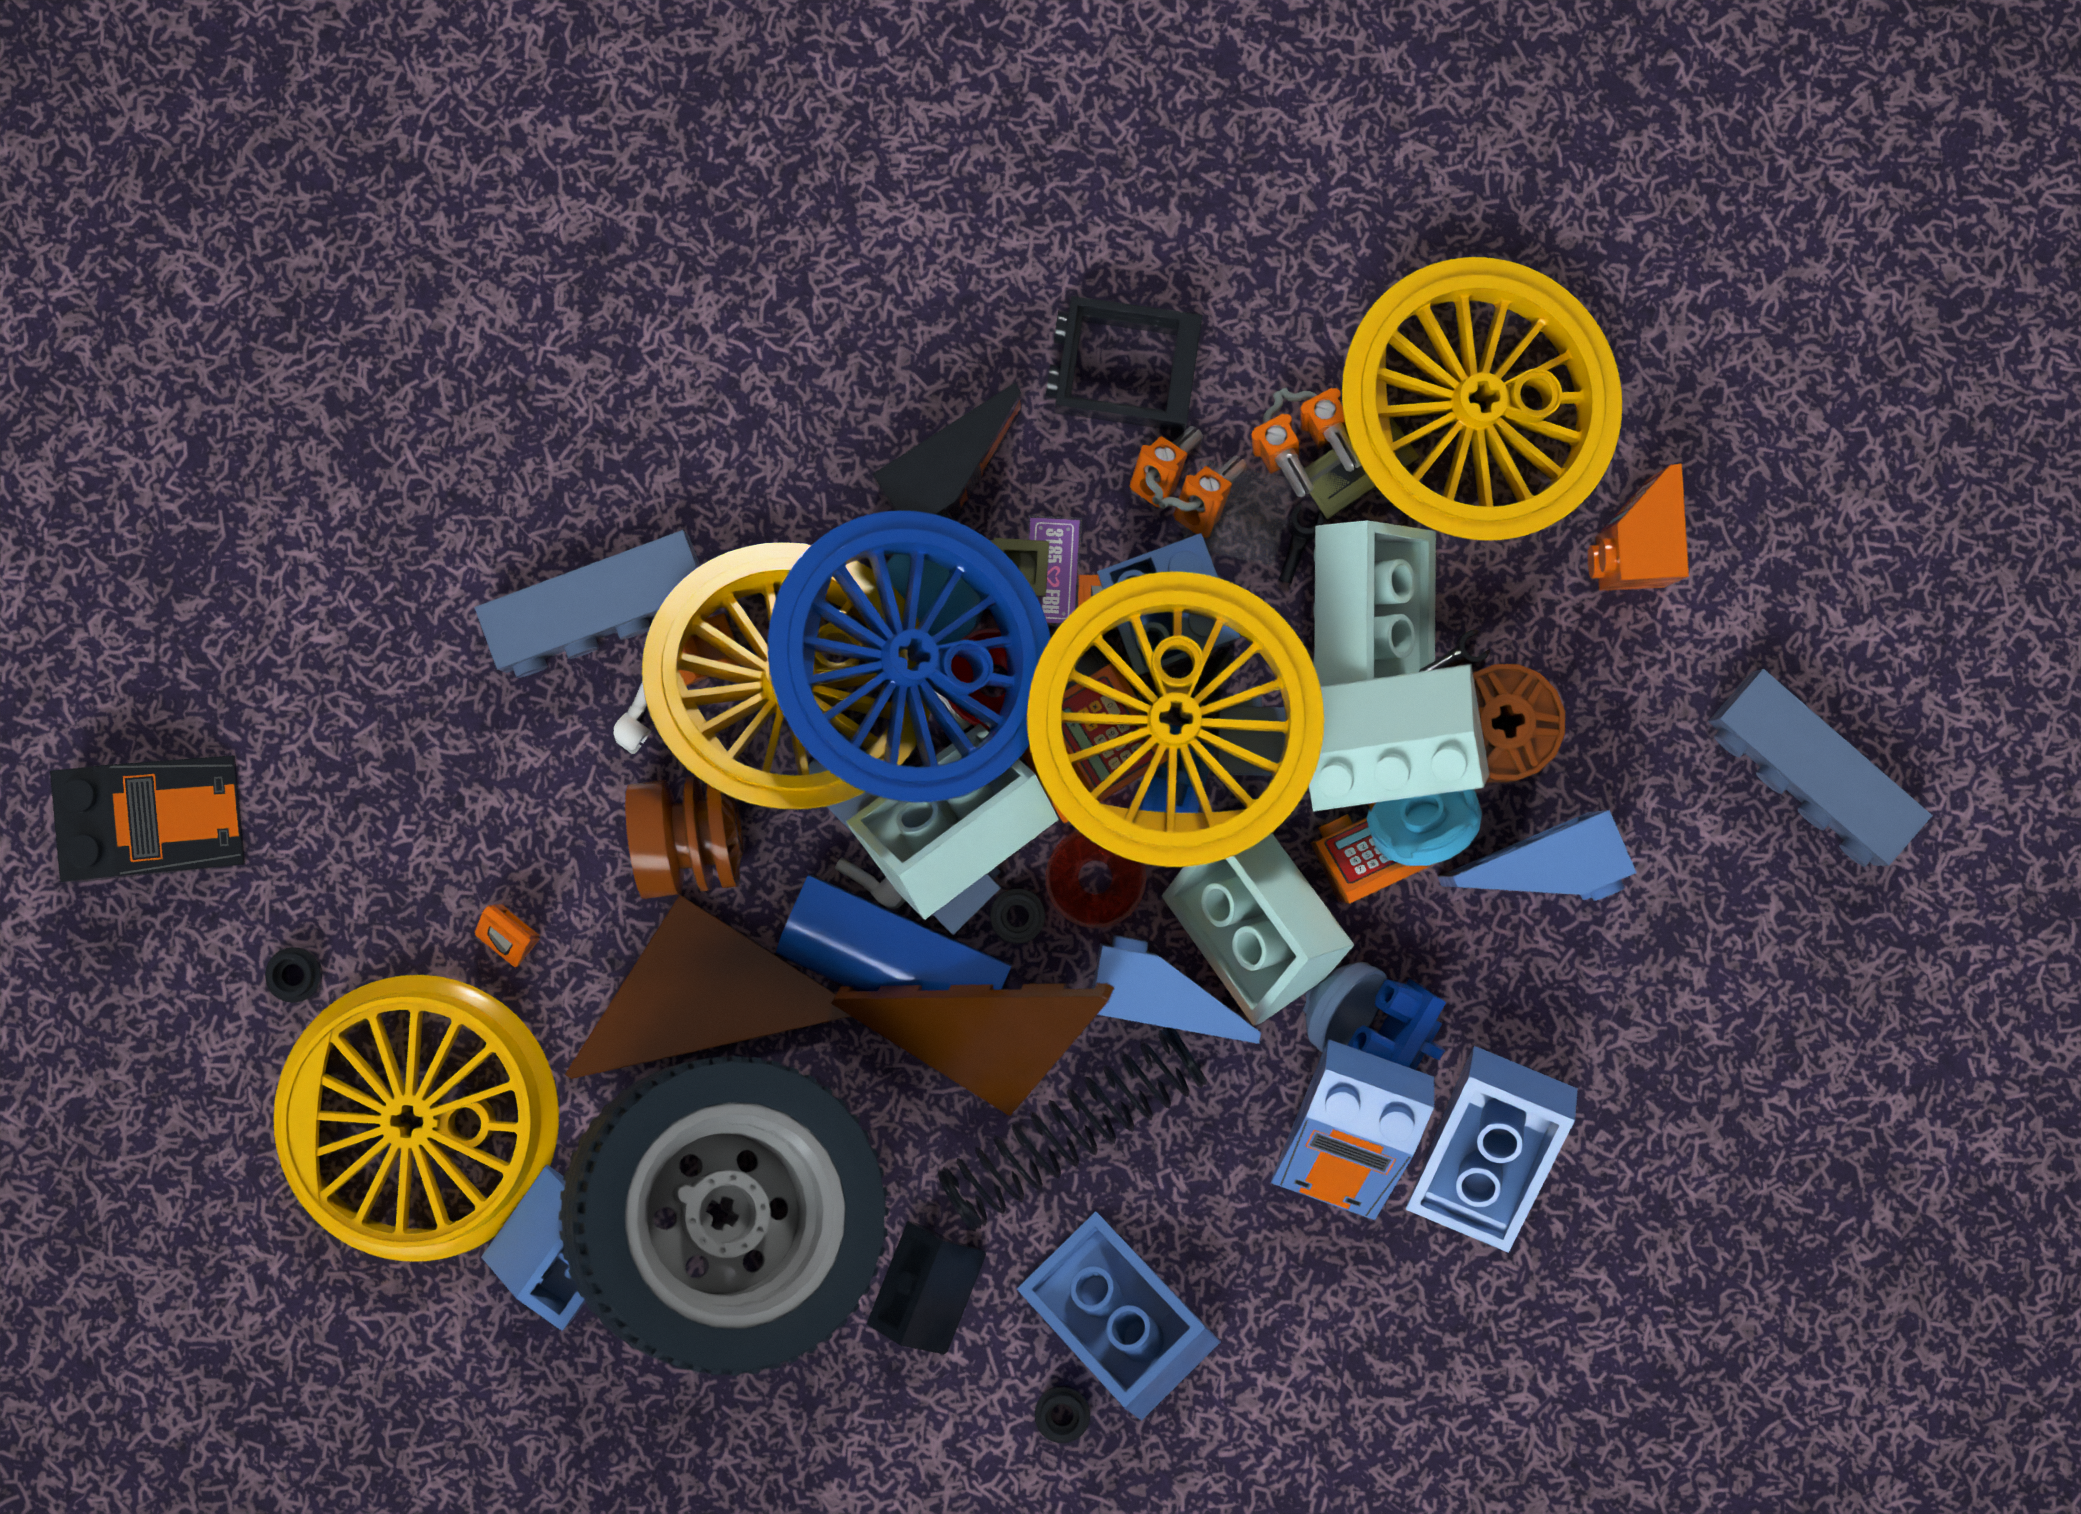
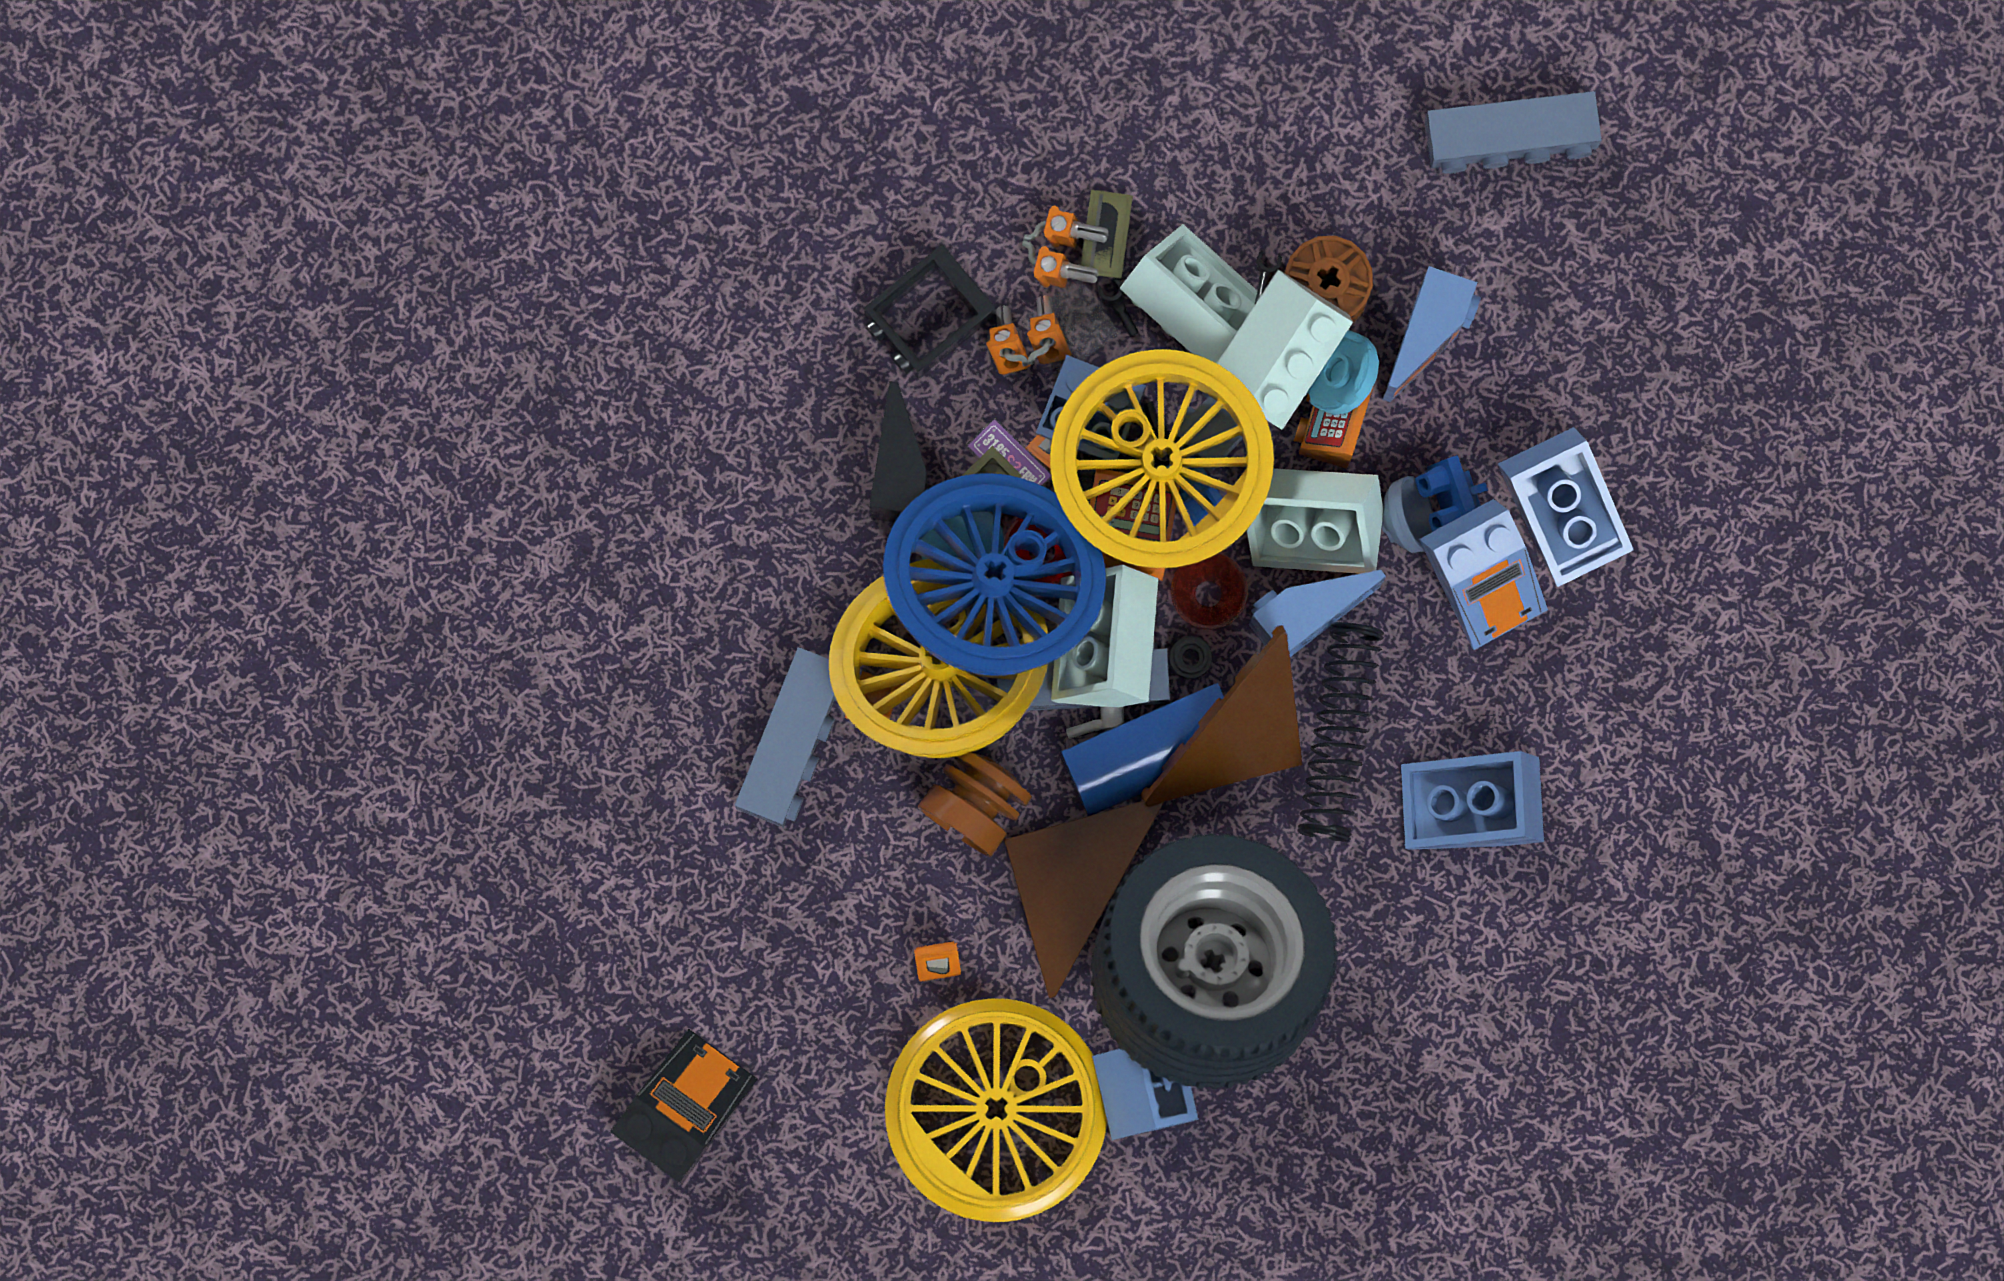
camera: 50 degrees left, 5 degrees down
(276, 974) = (843, 1092): black plate -> none
(628, 729) = (883, 785): white hand -> none
(925, 1289) = (1359, 899): black panel -> none
(1062, 1432) = (1513, 880): black plate -> none
(1580, 348) = (1152, 49): yellow piece -> none
(1645, 539) = (1293, 111): orange slope -> none

